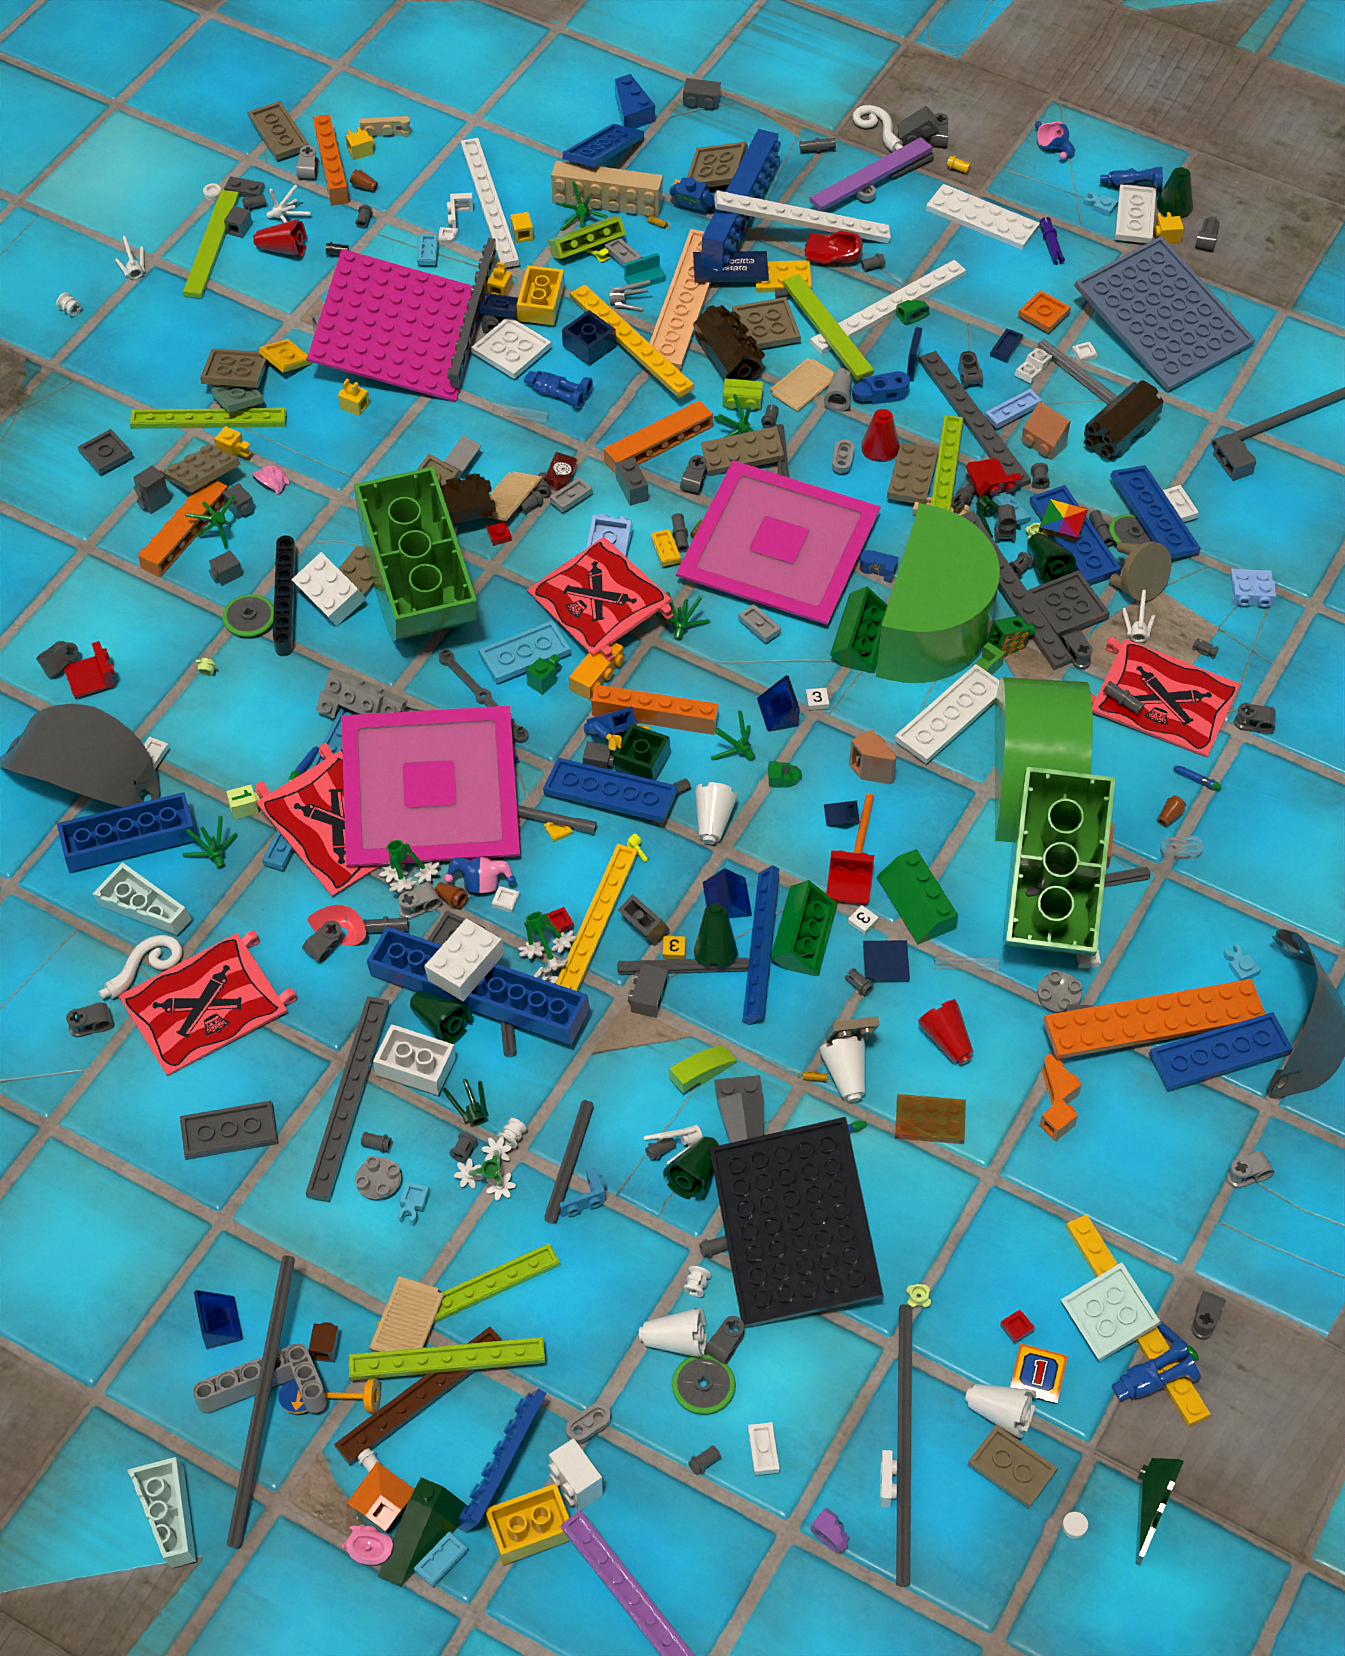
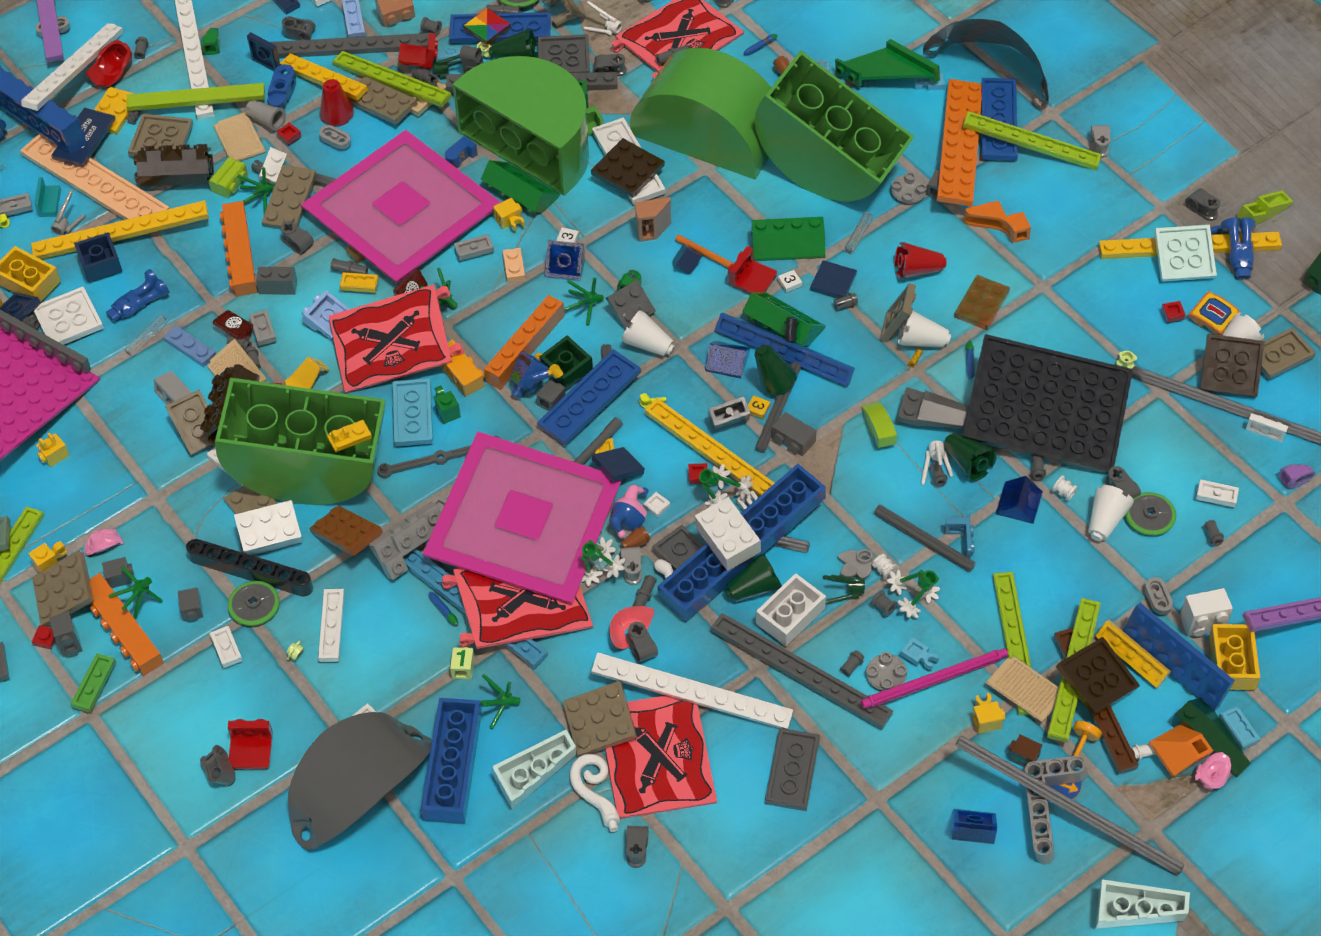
camera: 65 degrees left, 0 degrees up
(115, 533) = (93, 683): none -> bright green plate
(191, 613) = (226, 646): none -> white plate
(219, 937) = (600, 719): none -> dark tan plate
(246, 683) = (331, 625): none -> white plate
(280, 1007) = (692, 691): none -> white plate
(350, 648) = (346, 530): none -> dark orange plate
(358, 1291) = (987, 715): none -> yellow brick
(384, 1224) = (934, 678): none -> dark pink piece
(414, 586) = (349, 436): none -> yellow plate
(425, 929) = (663, 567): none -> white arm
(439, 1381) = (1097, 676): none -> dark brown plate
(496, 1416) = (1134, 654): none -> yellow plate
(504, 1106) = (857, 563): none -> light grey plate
(524, 449) = (189, 346): none -> medium blue plate
(524, 549) = (306, 373): none -> yellow piece
(534, 844) = (618, 464): none -> dark blue tile
(661, 1242) = (1020, 500): none -> clear blue slope
(680, 589) = (411, 282): none -> clear red slope
(750, 781) = (628, 302): none -> dark grey plate
(757, 666) = (514, 264): none -> light nougat plate
(770, 418) = (273, 165): none -> white plate
(779, 934) = (791, 328): none -> black pin
(817, 635) = (508, 214): none -> yellow brick
(827, 418) = (288, 133): none -> red plate
(915, 415) = (320, 74): none -> yellow plate
(935, 713) = (627, 167): none -> dark brown plate
(956, 1409) = (1232, 365): none -> dark brown plate
(1199, 1095) = (1032, 140): none -> lime tile
(1230, 906) = (887, 63): none -> green piece
(1241, 1388) = (1266, 206): none -> lime slope

